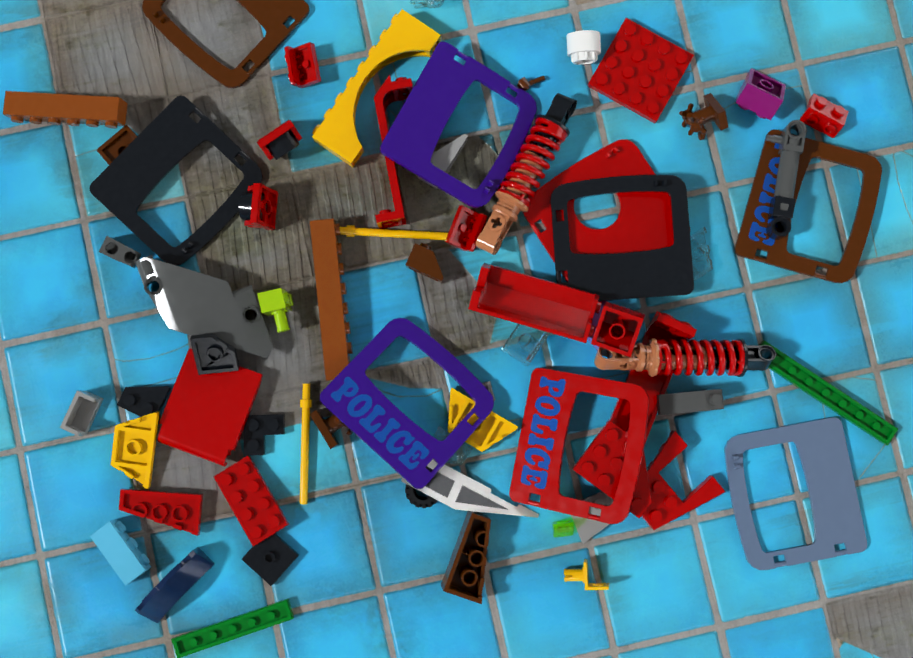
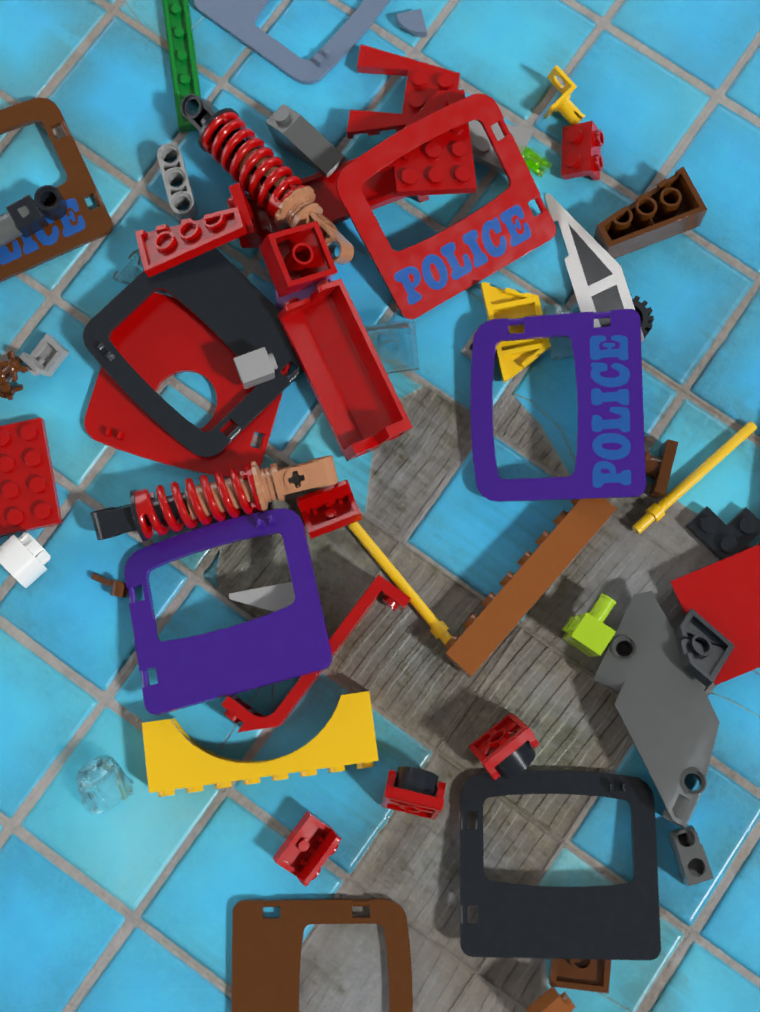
camera: 130 degrees left, 5 degrees down
(424, 262) = (402, 521): reddish brown slope -> none
(544, 559) = (581, 151): none -> red bracket
(579, 256) = (255, 367): none -> light grey brick
(689, 151) = (45, 357): none -> light grey bracket
(689, 270) = (191, 238): none -> red wing
(712, 535) = (412, 22): none -> sand blue tile
(739, 309) = (173, 173): none -> light grey beam

